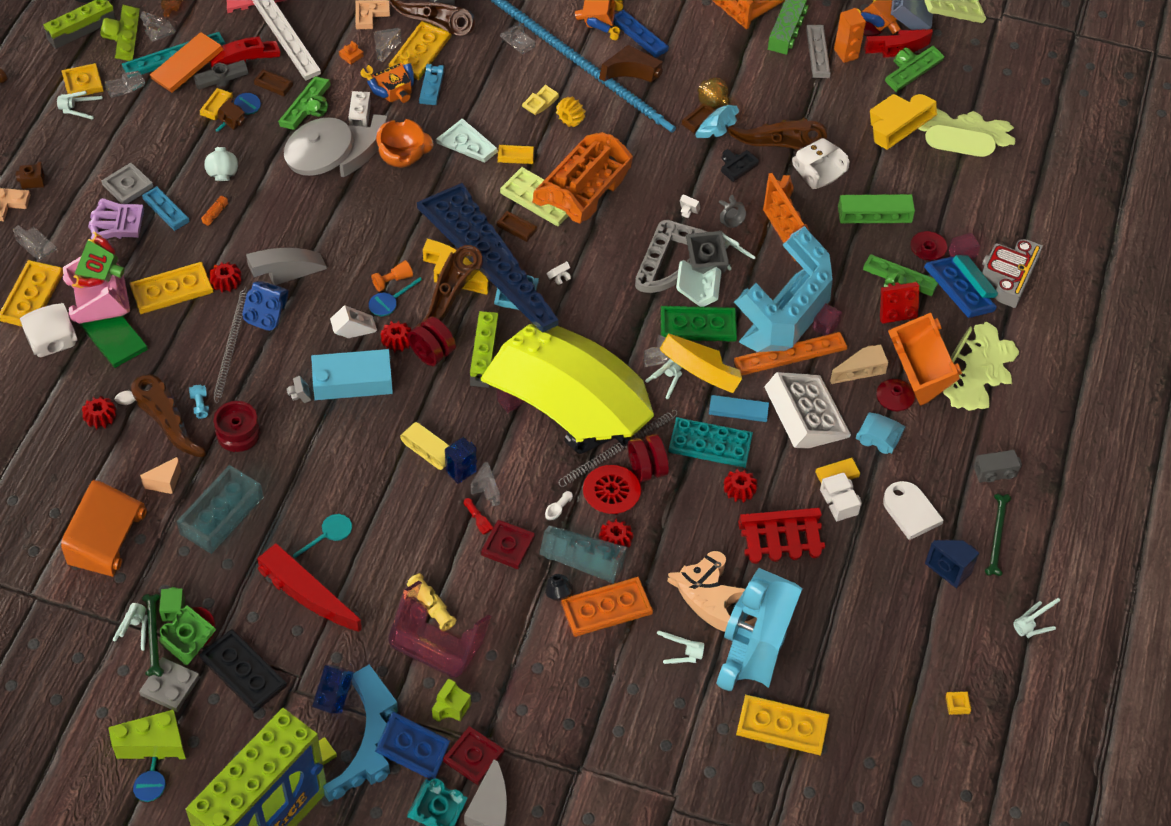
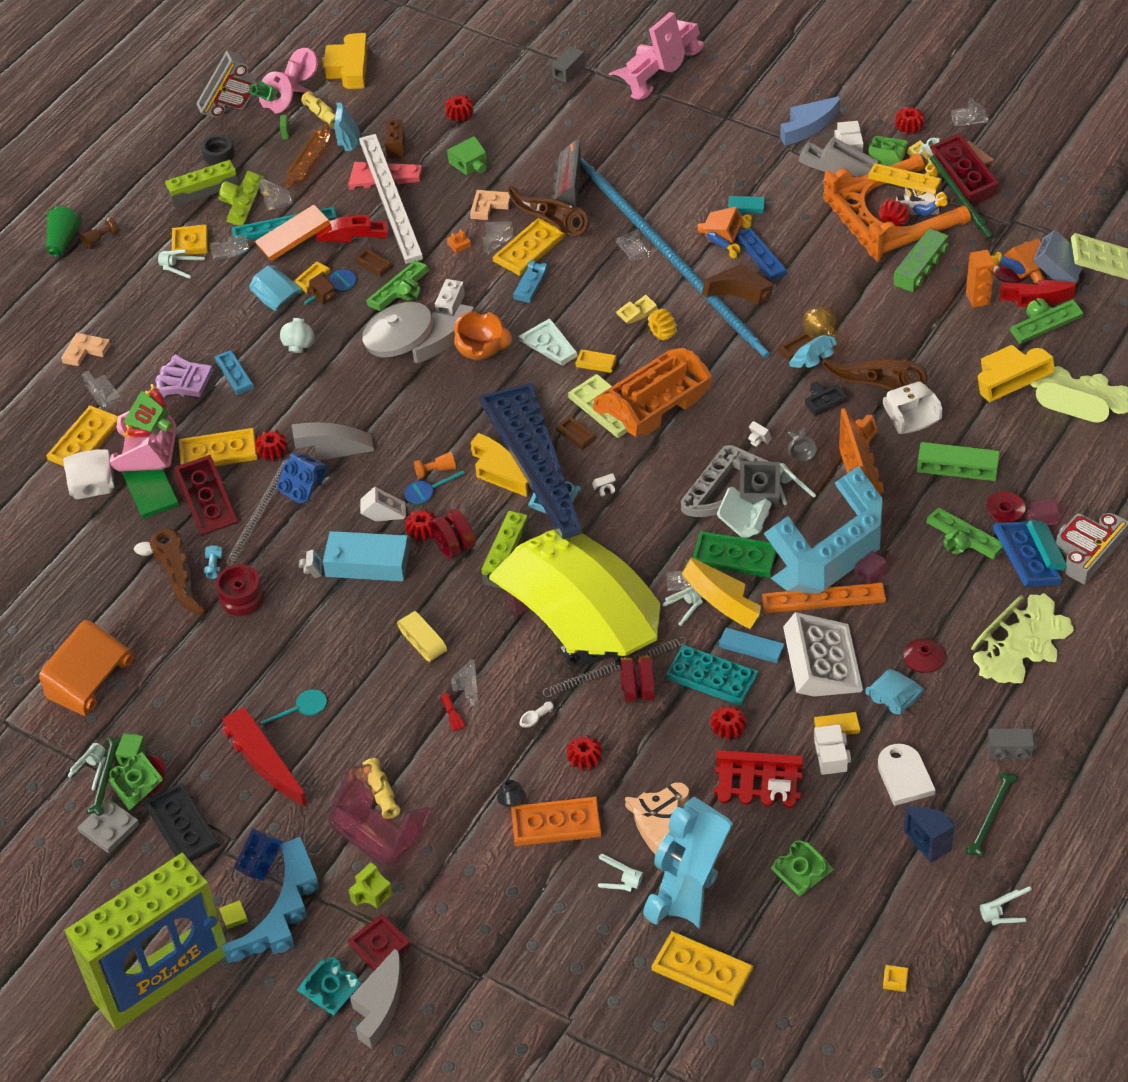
camera: 20 degrees right, 5 degrees down
(31, 176) = (115, 326): reddish brown brick -> none
(99, 412) = (114, 558): red gear -> none
(127, 184) = (203, 344): light grey plate -> none
(148, 737) = (73, 871): lime wedge -> none
(149, 784) = (65, 914): blue piece -> none
(162, 477) = (157, 629): light nougat slope -> none
(173, 335) = (205, 495): none -> dark red slope
(182, 119) = (273, 287): none -> medium azure slope
(214, 210) = (280, 380): orange axle -> none
(220, 74) = (323, 248): dark grey piece -> none
(220, 509) = (201, 666): clear light blue brick -> none
(392, 82) = (490, 275): torso -> none
(412, 746) = (320, 922): blue tile -> none
(452, 280) = (488, 476): reddish brown animal -> none
(460, 460) = (448, 653): clear blue brick -> none
(508, 544) = (473, 744): dark red plate -> none
(583, 553) = (545, 764): clear light blue wedge -> none
(609, 472) = (575, 703): red piece -> none
(805, 539) = (778, 785): none -> white tile
(818, 51) = (947, 292): light grey tile -> none
(846, 613) = (801, 867): none -> bright green slope
(865, 363) = (893, 619): tan slope -> none
(899, 302) = (952, 560): red plate -> none
(924, 357) = (959, 619): orange windscreen -> none

